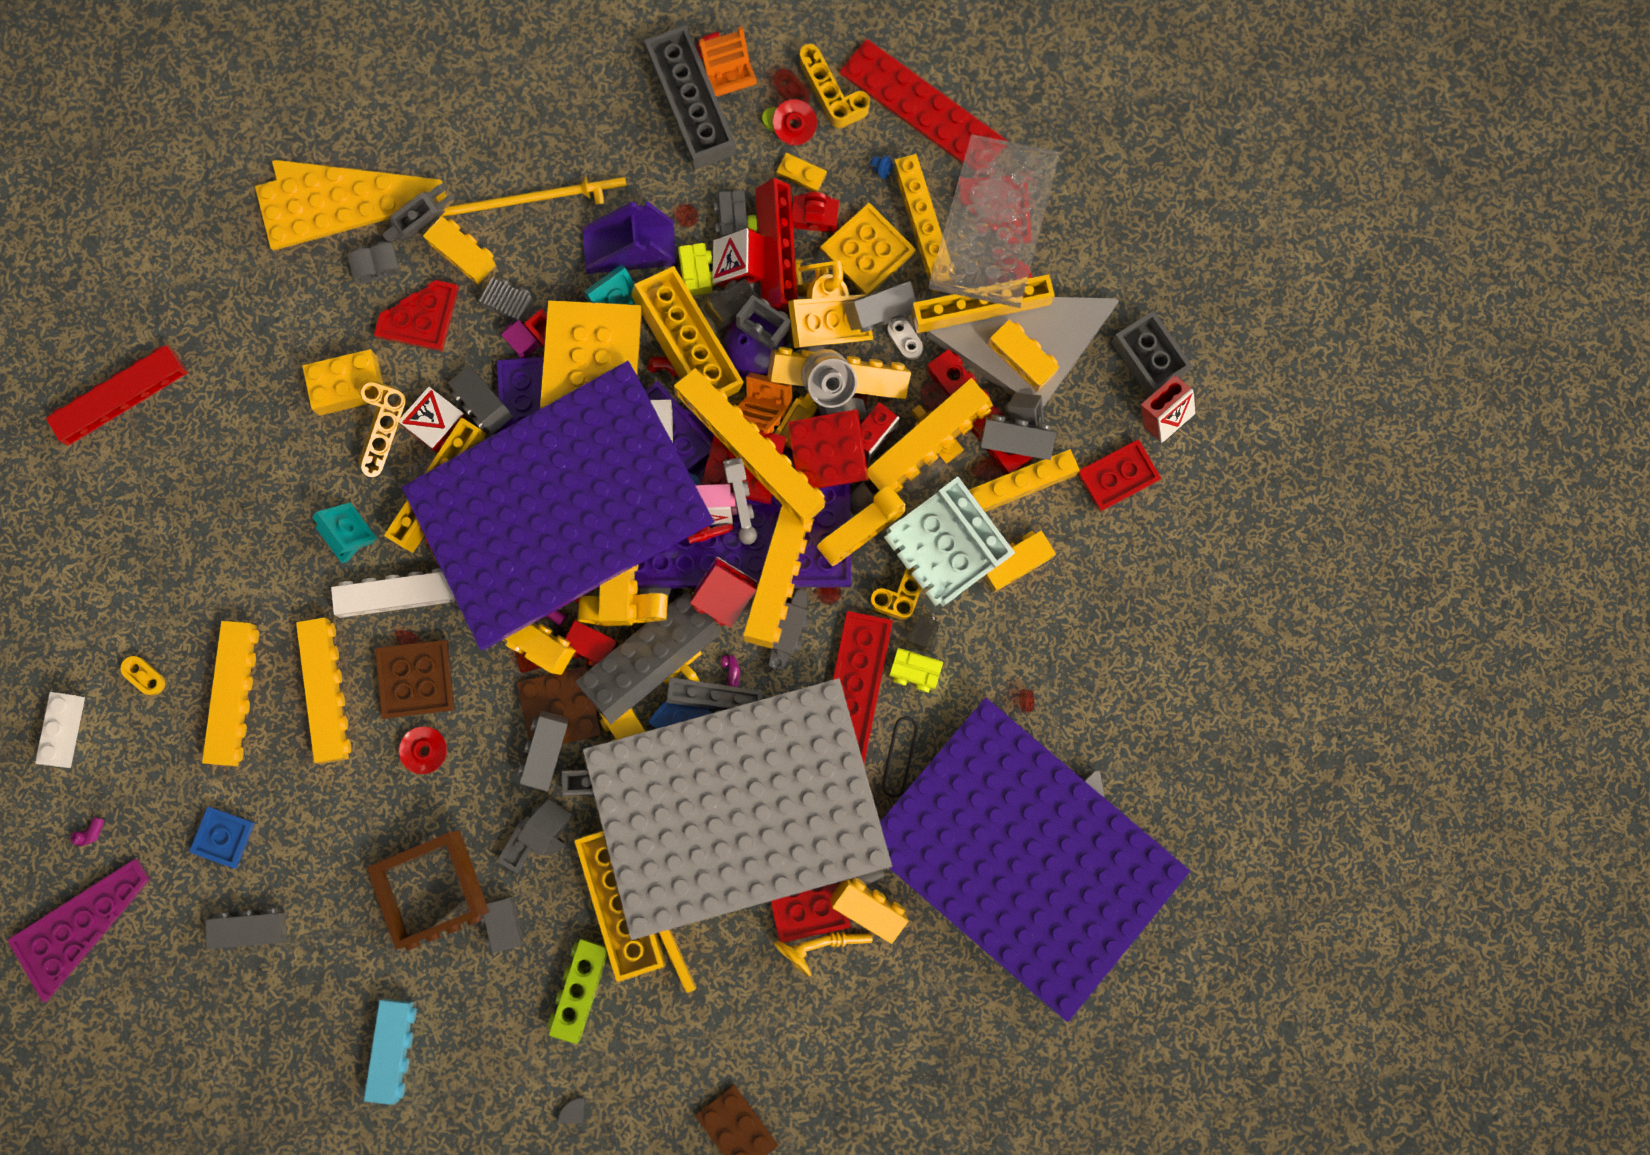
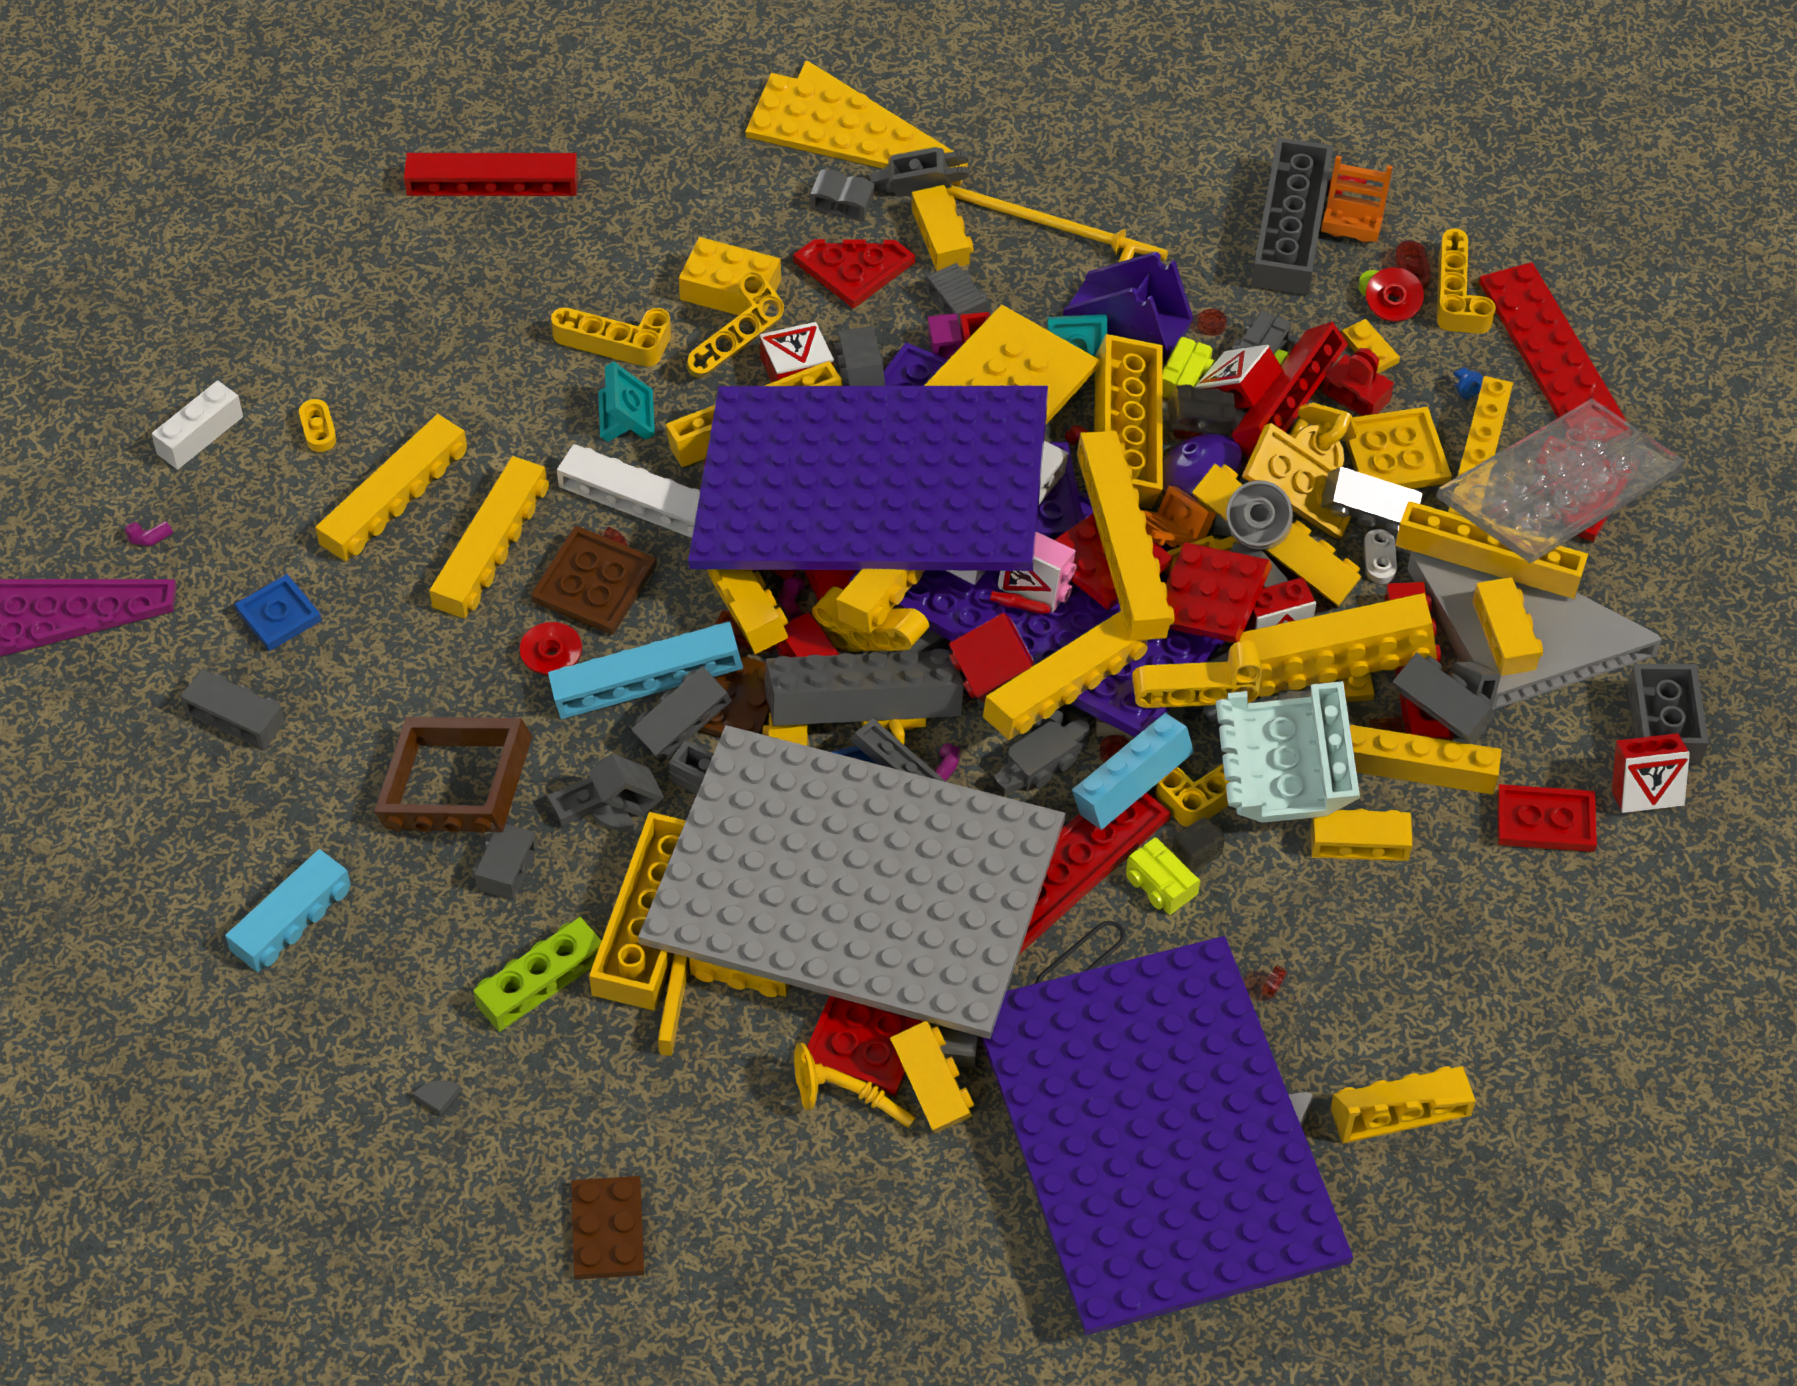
camera: 35 degrees right, 25 degrees down
(292, 476) = (612, 338): none -> yellow beam
(497, 731) = (643, 670): none -> medium azure brick
(735, 474) = (1088, 542): light grey plate -> none
(755, 330) = (1223, 417): dark grey window -> none
(858, 613) = (1133, 771): none -> medium azure brick
(1151, 737) = (1402, 1104): none -> yellow wedge

